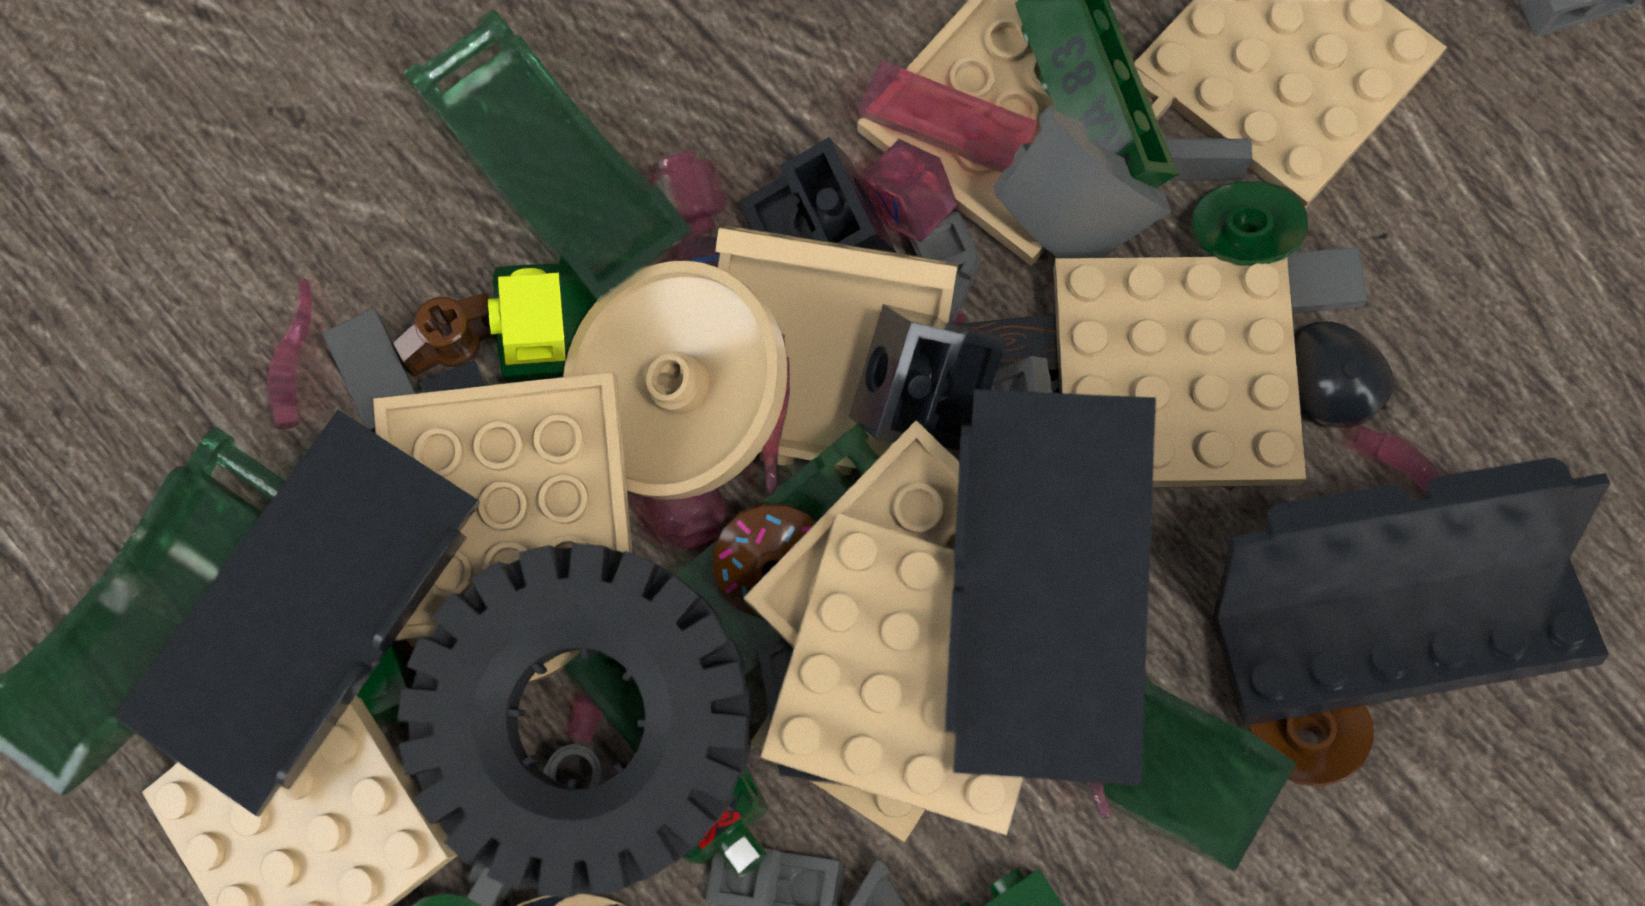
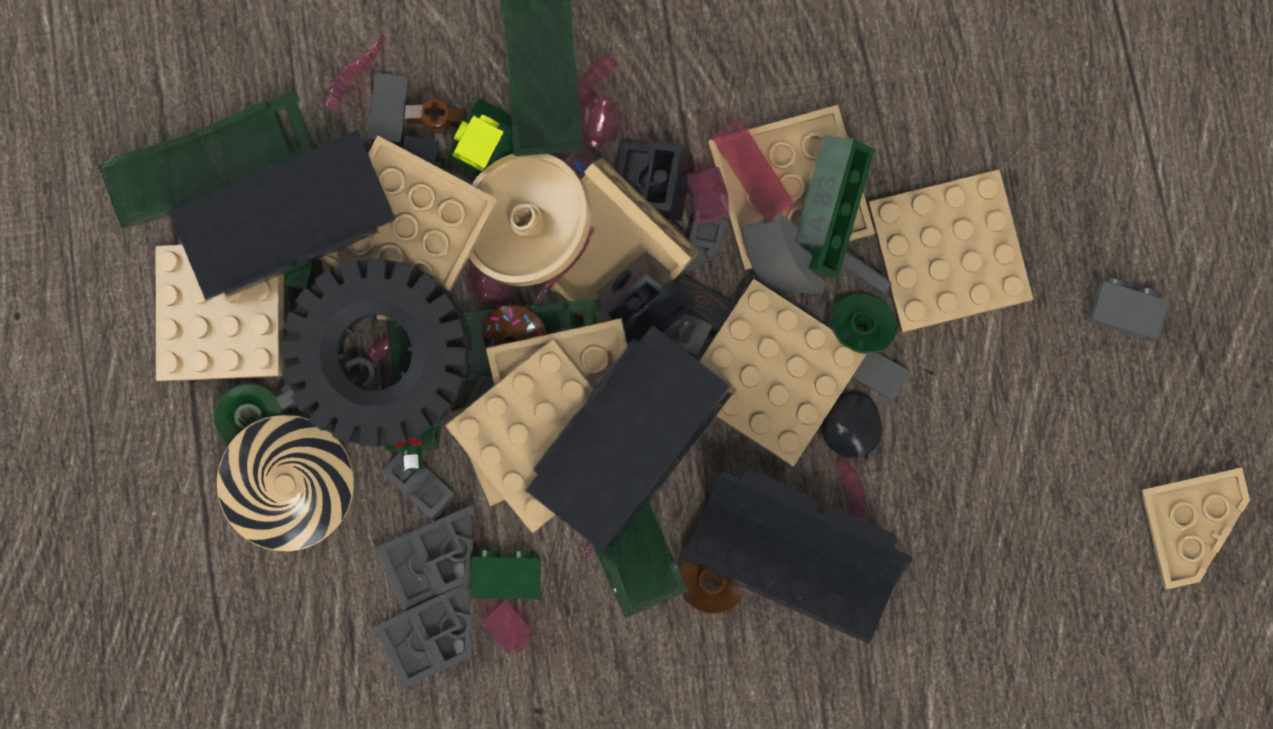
camera: 30 degrees right, 10 degrees up
(641, 136) = (594, 76): none -> clear pink animal

